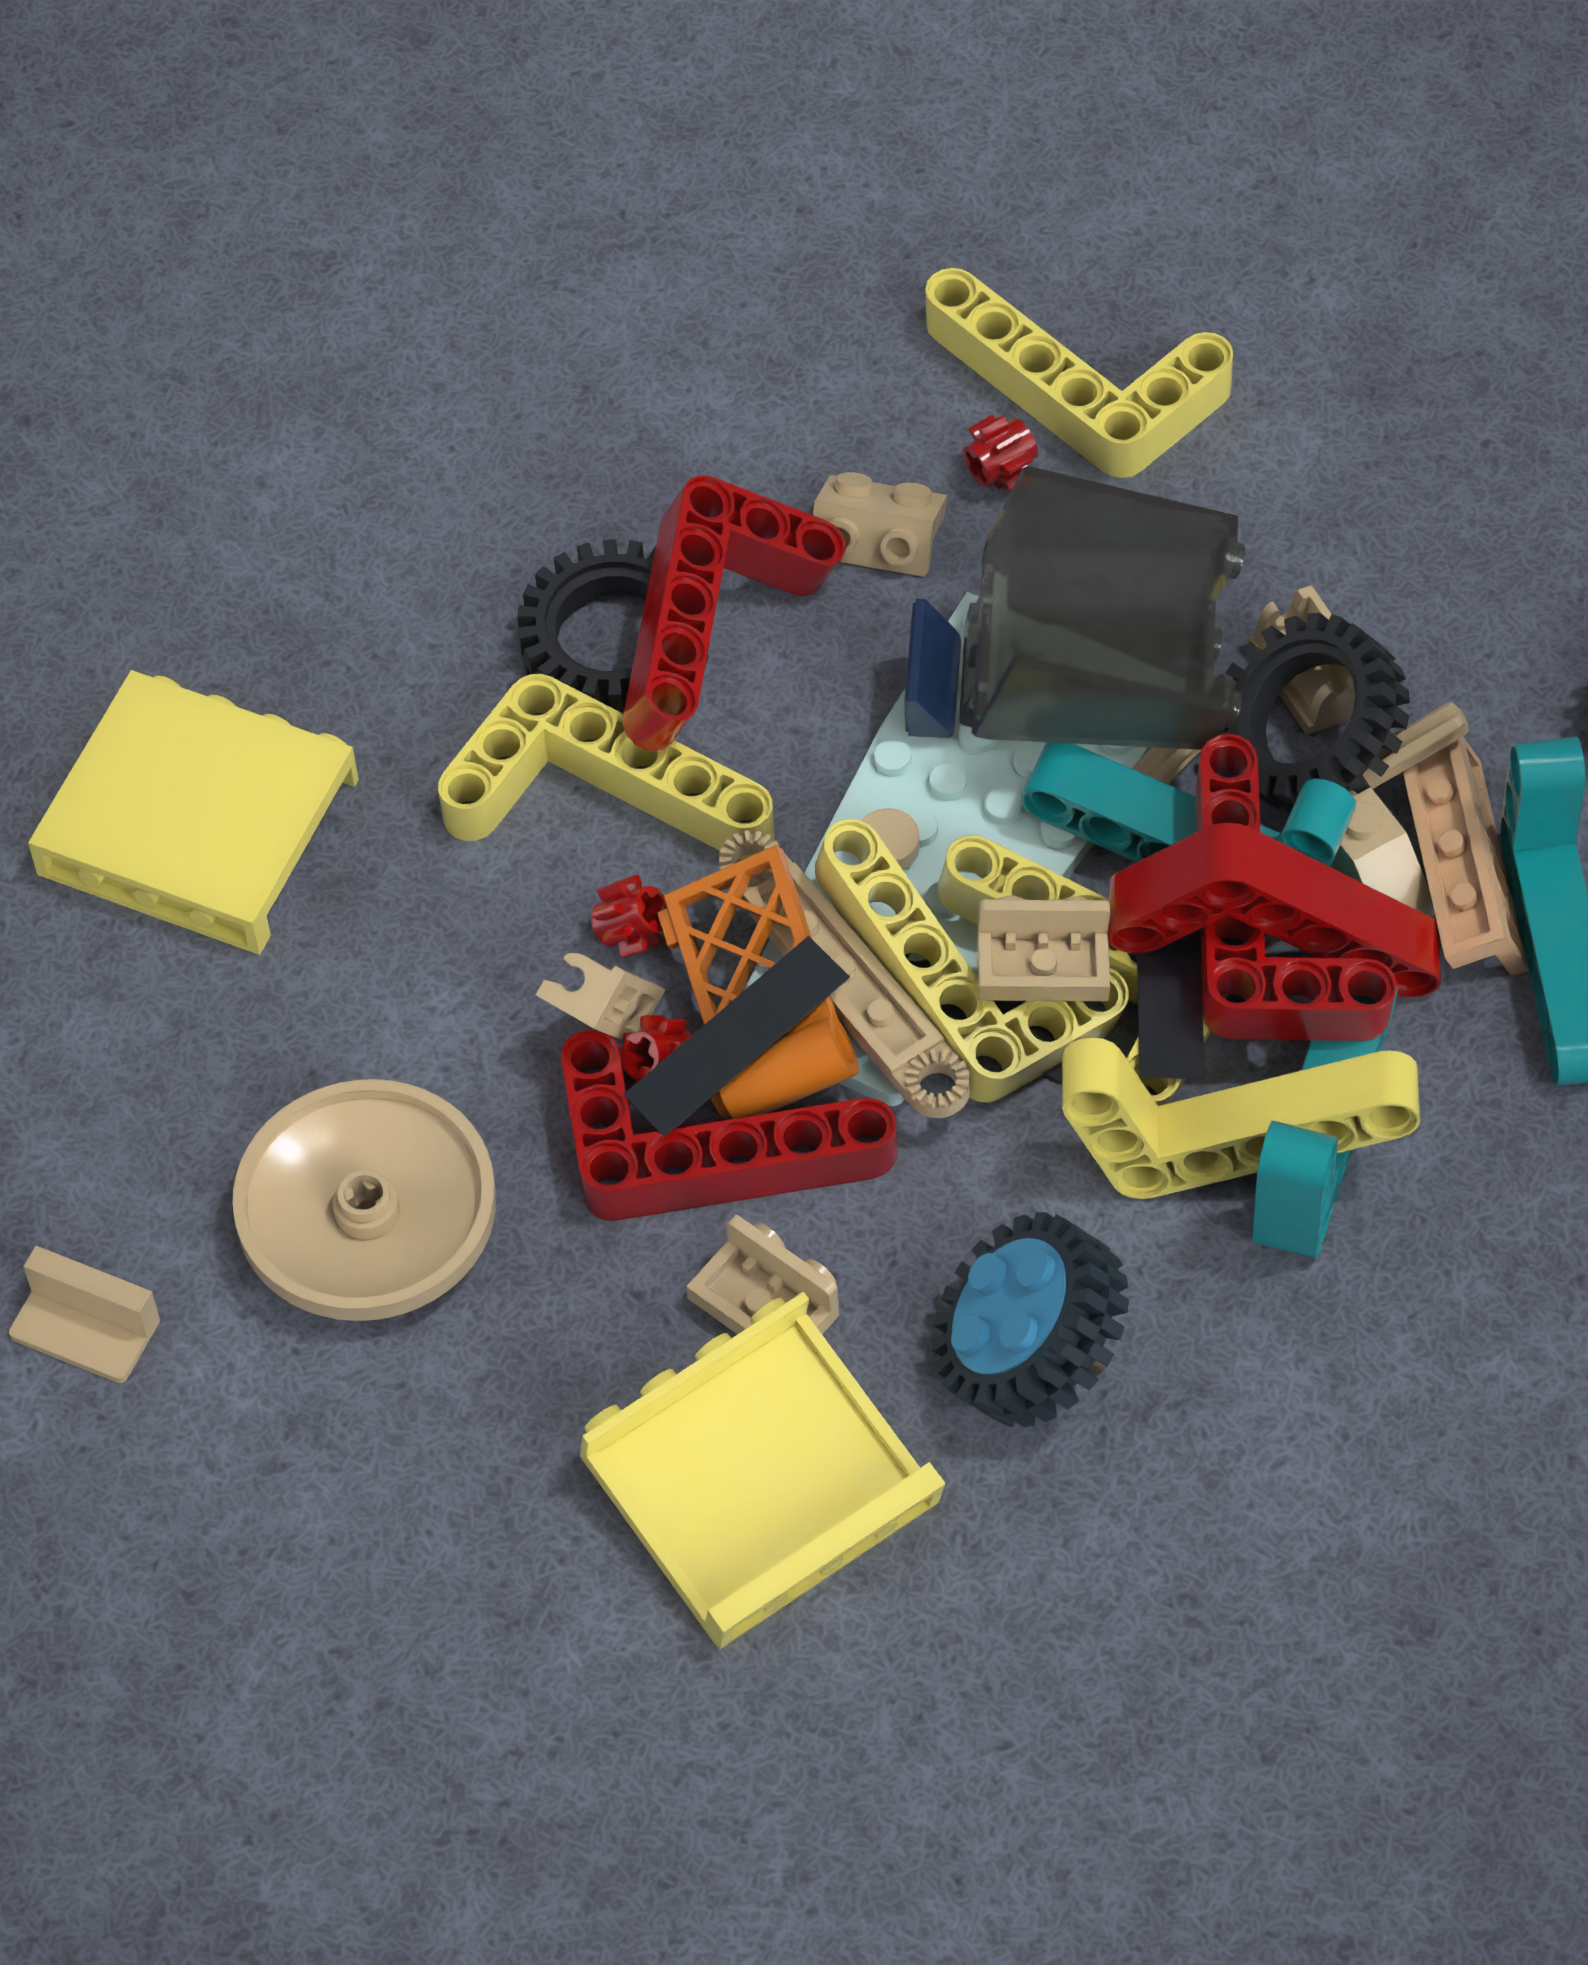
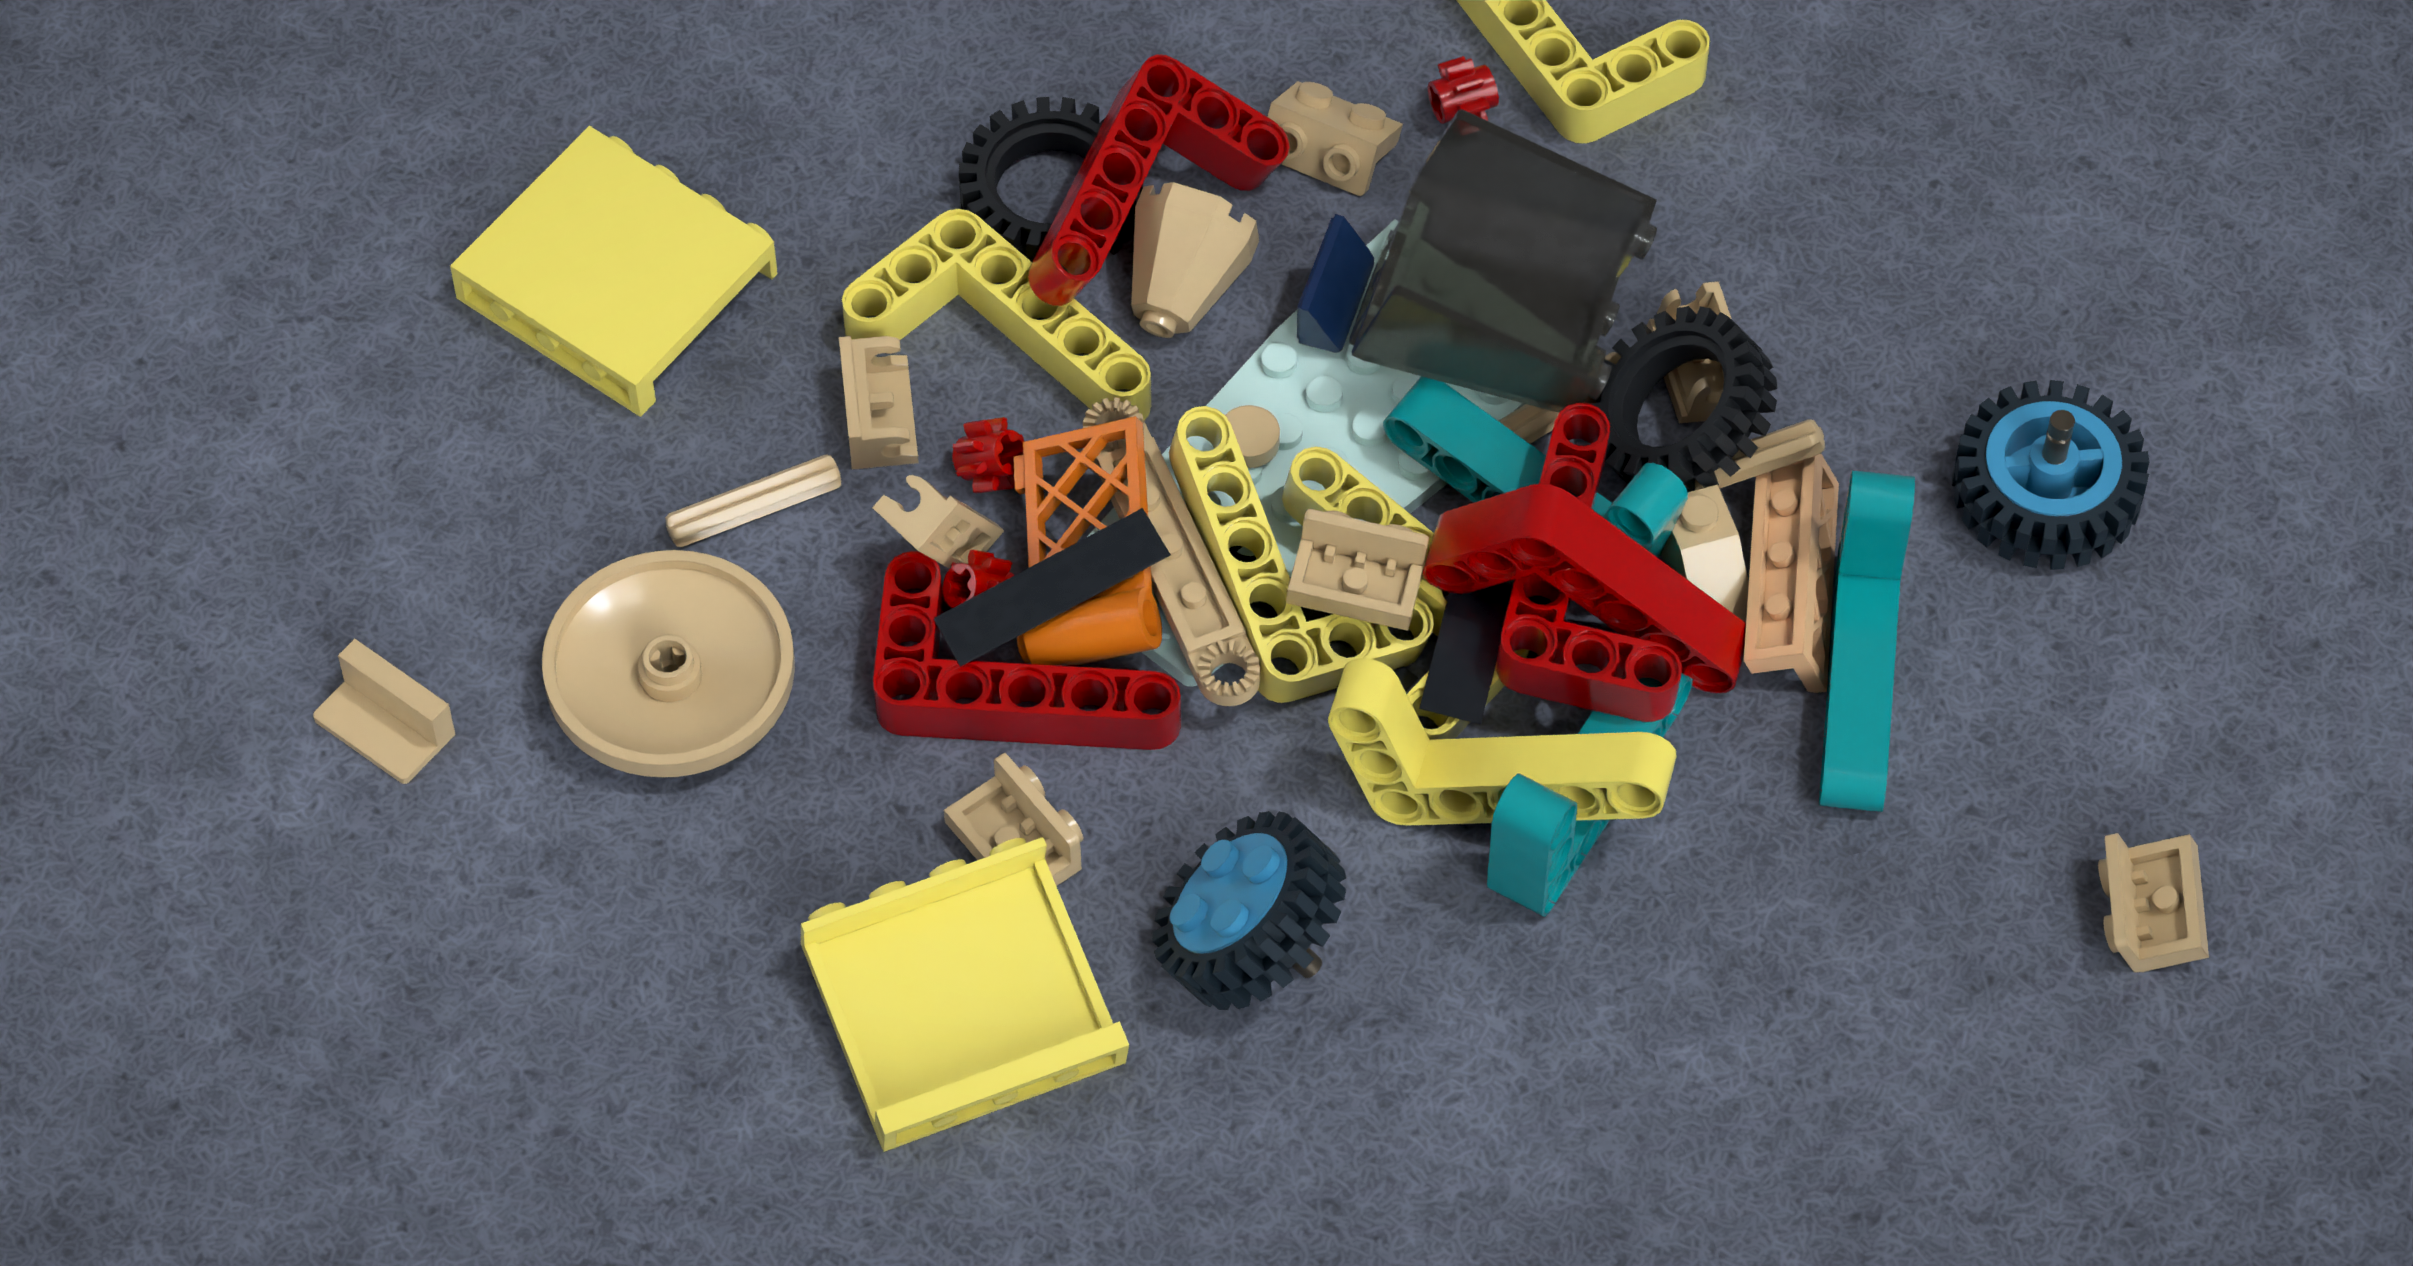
camera: 10 degrees right, 0 degrees up
(400, 1015) = (753, 500): none -> tan axle
(498, 888) = (877, 403): none -> tan hinge
(771, 672) = (1185, 256): none -> tan cone

